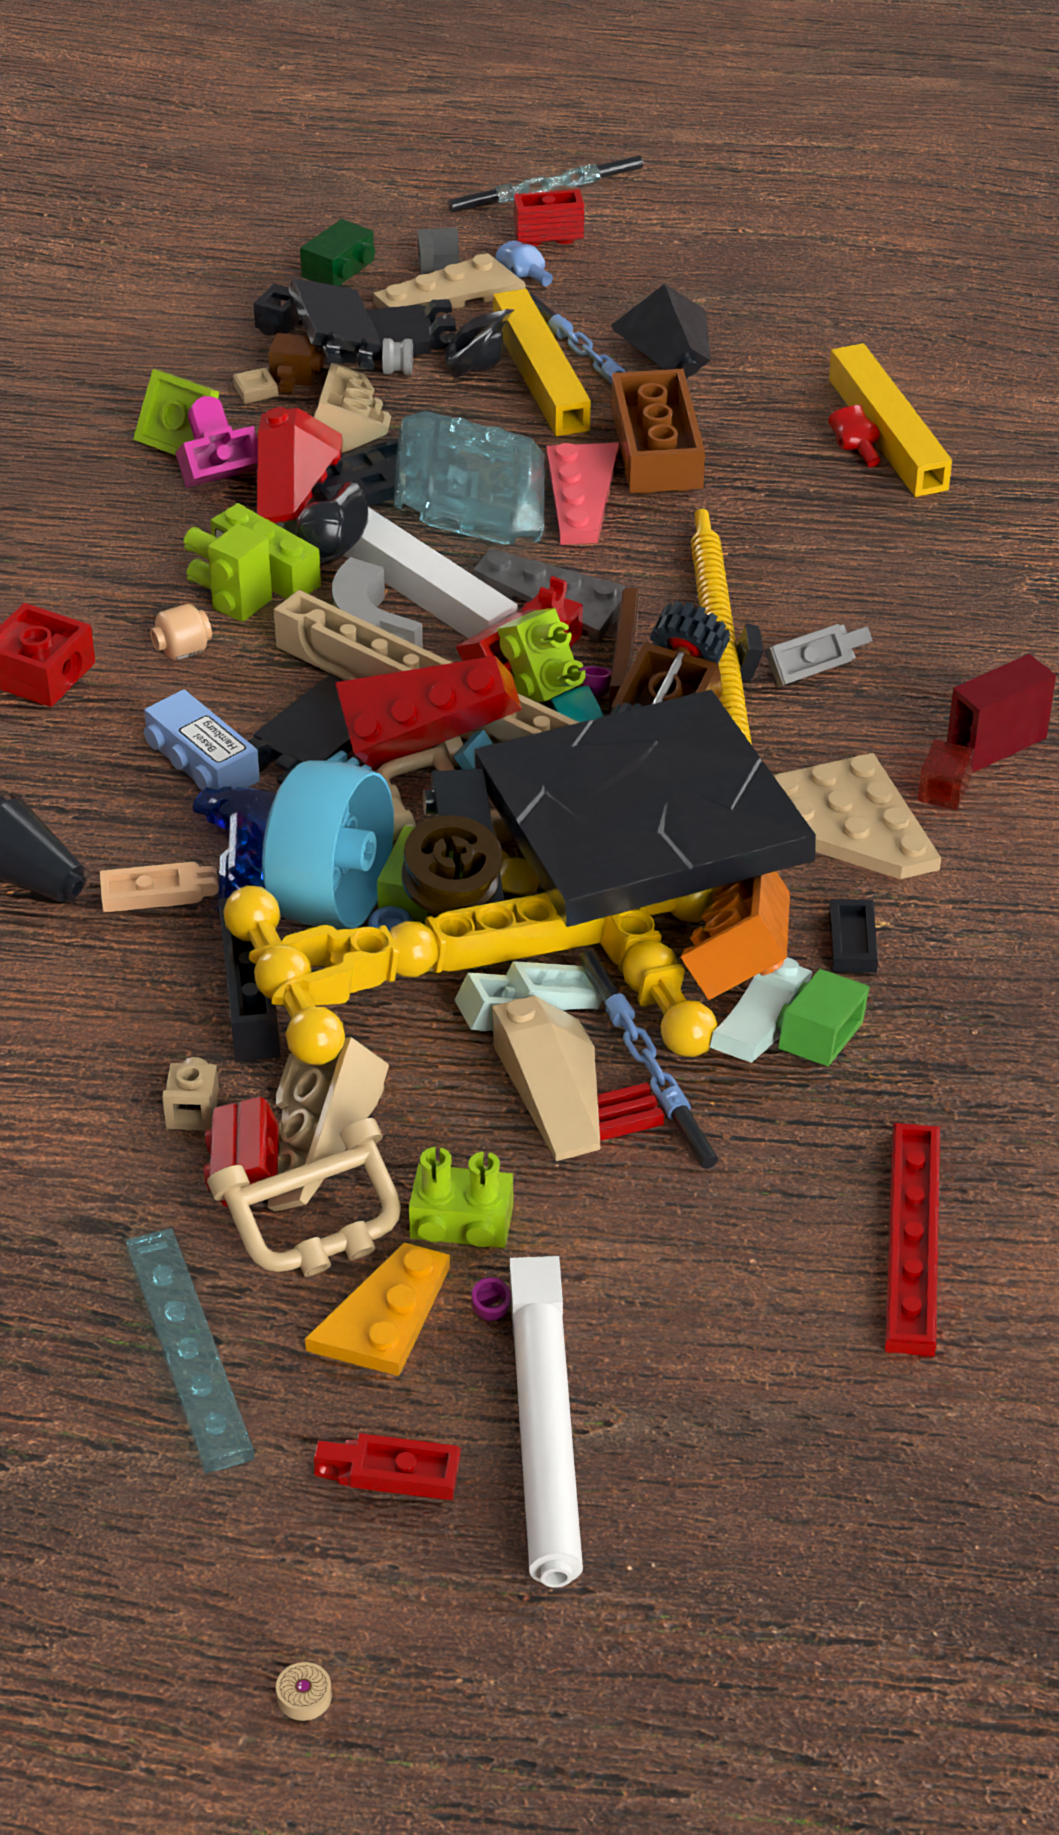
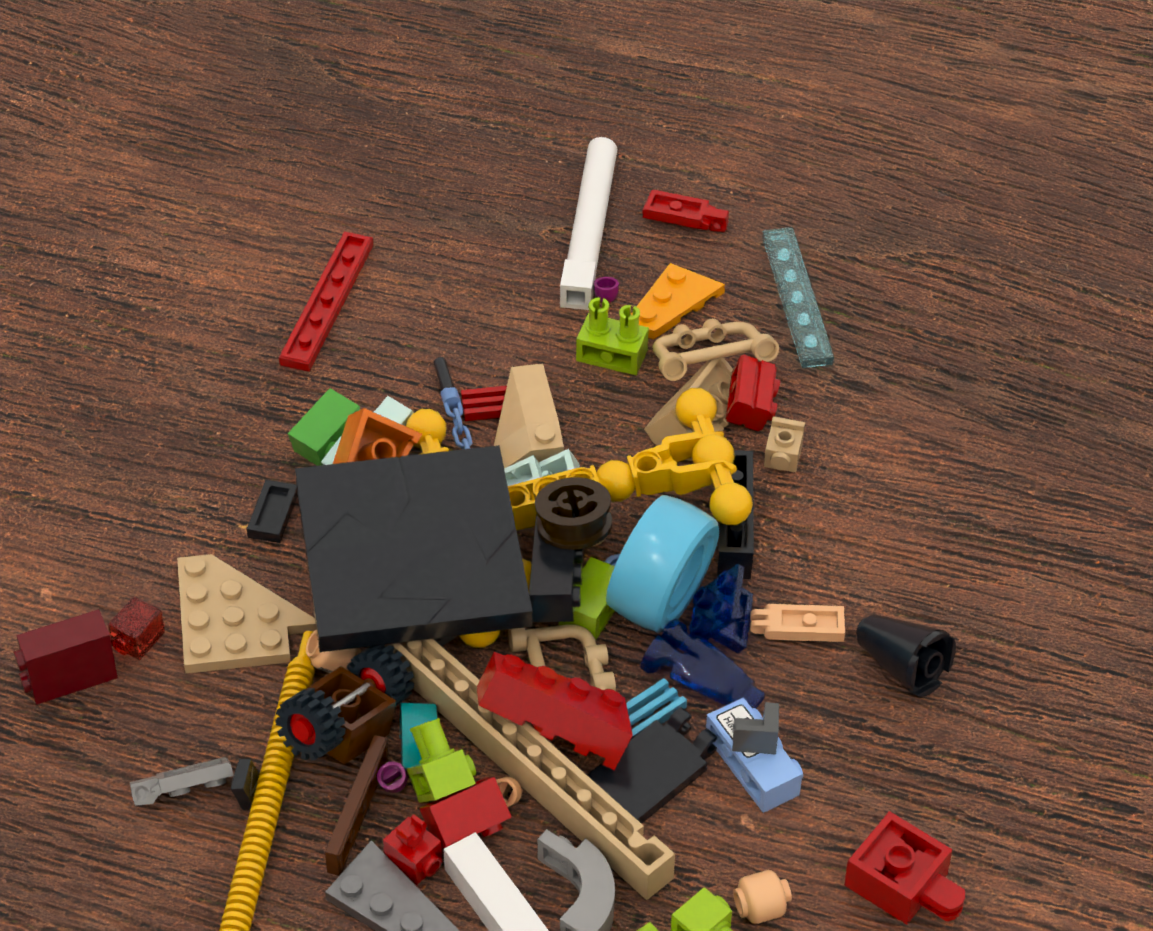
camera: 170 degrees left, 5 degrees up
(198, 717) = (757, 734): none -> dark grey panel
(303, 1691) = (747, 124): tan tile -> none

